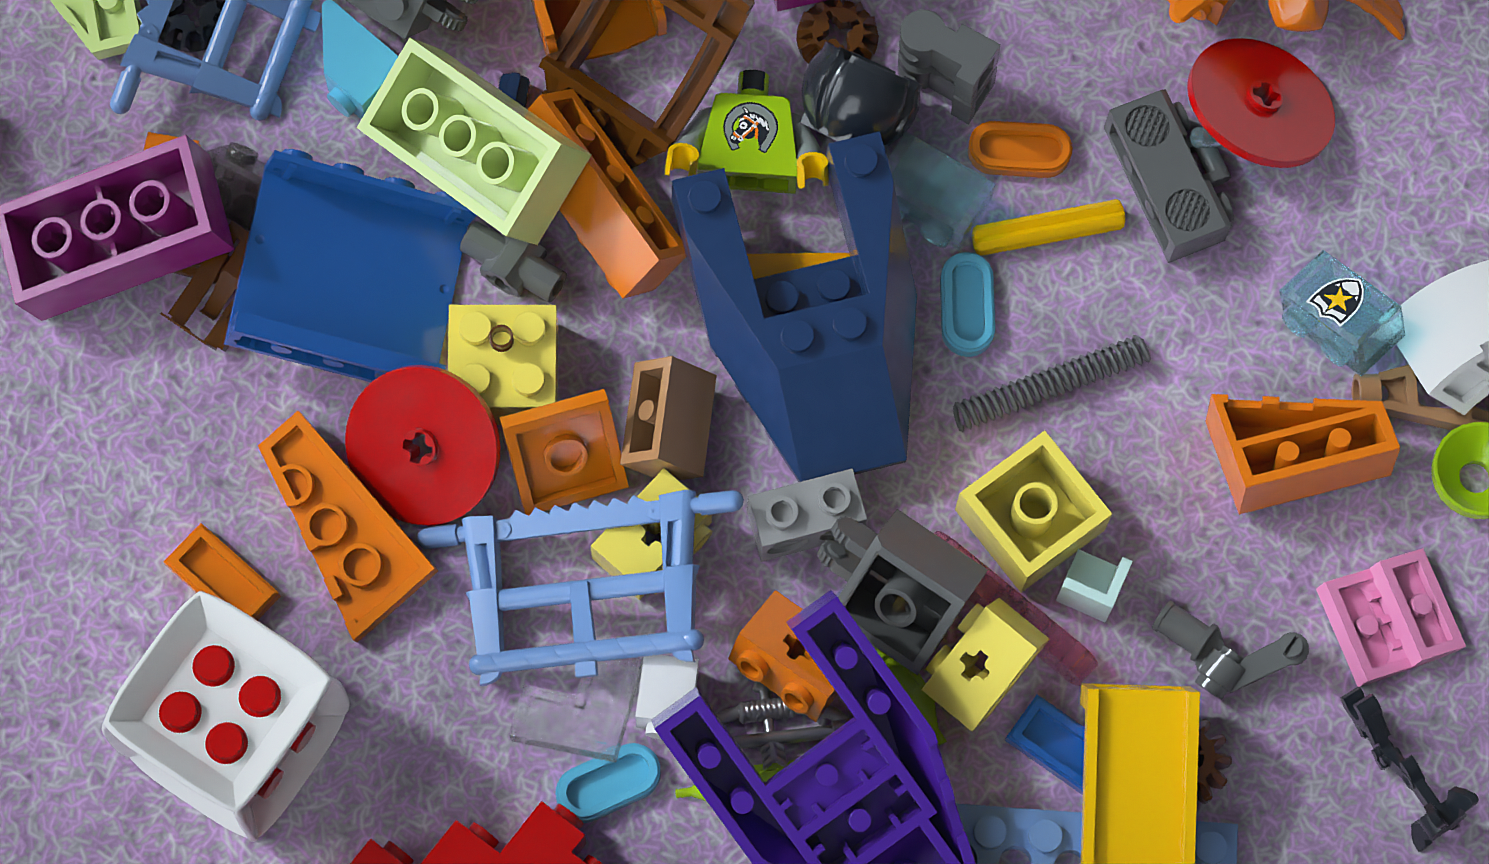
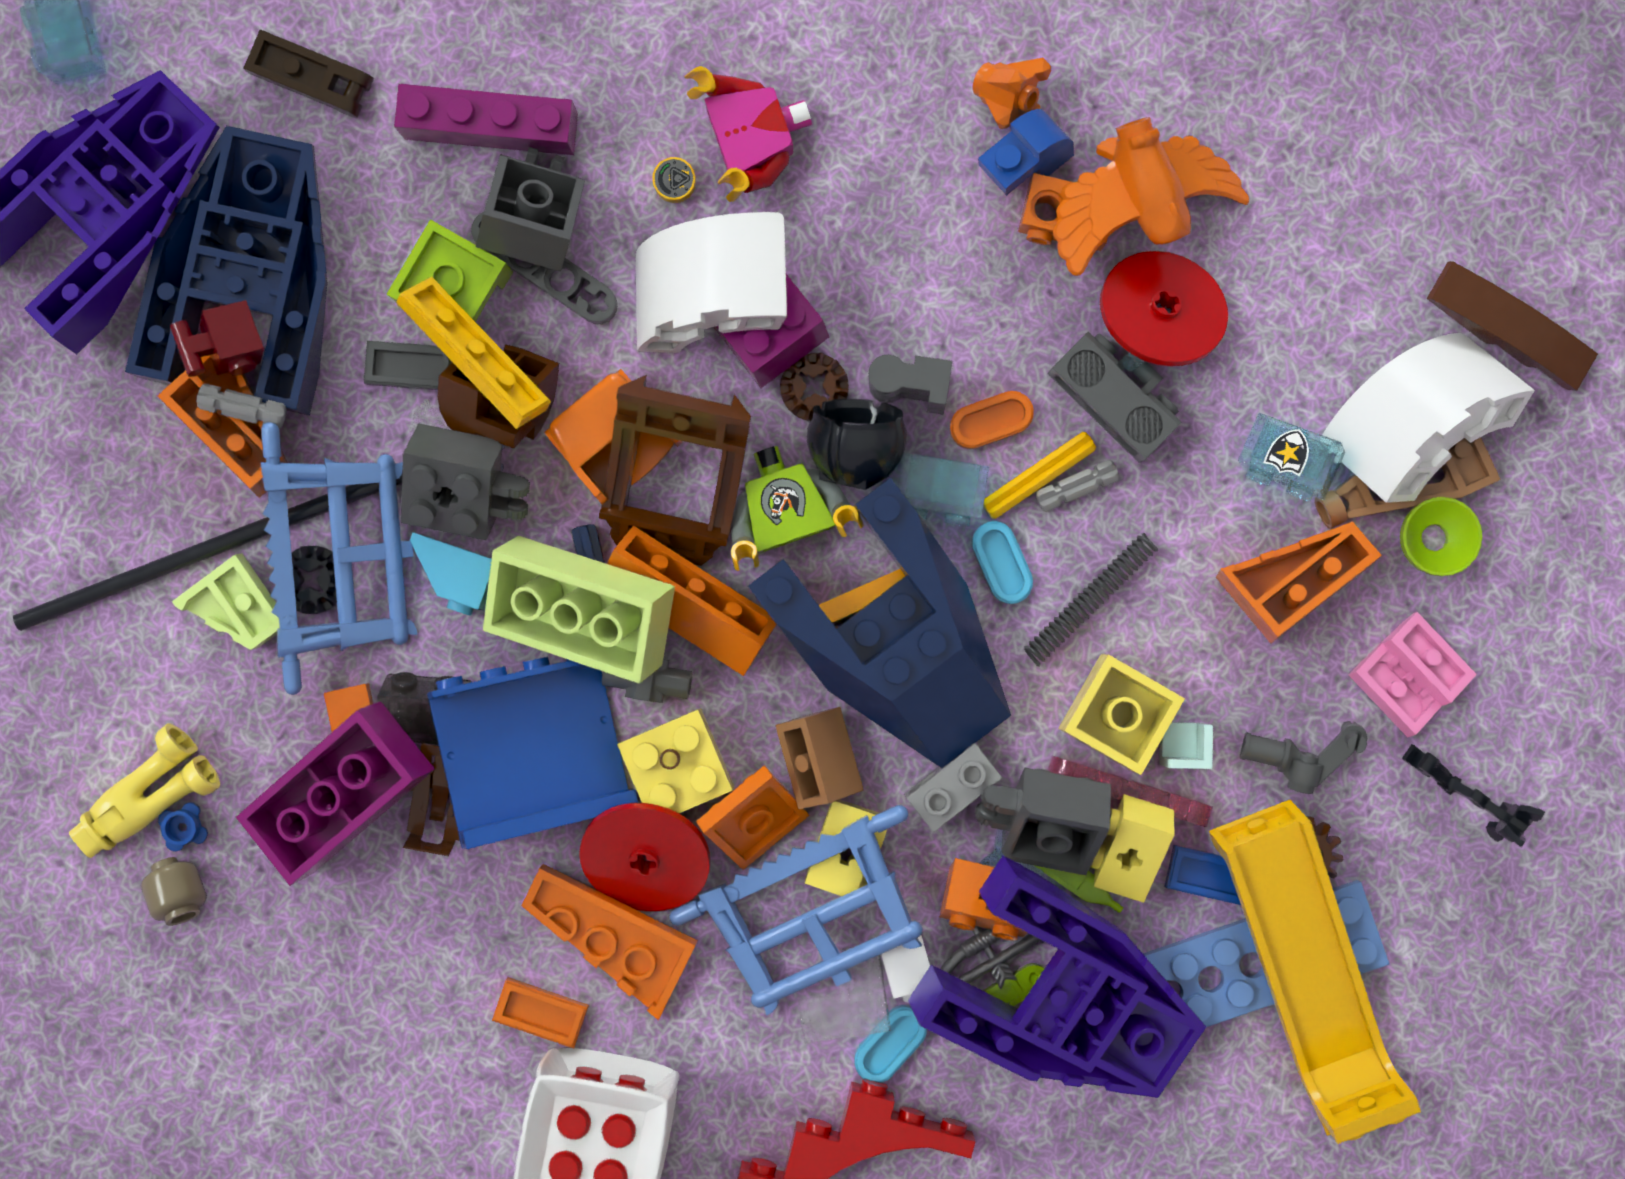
camera: 15 degrees left, 15 degrees up
(1087, 255) = (1077, 485): none -> light grey axle

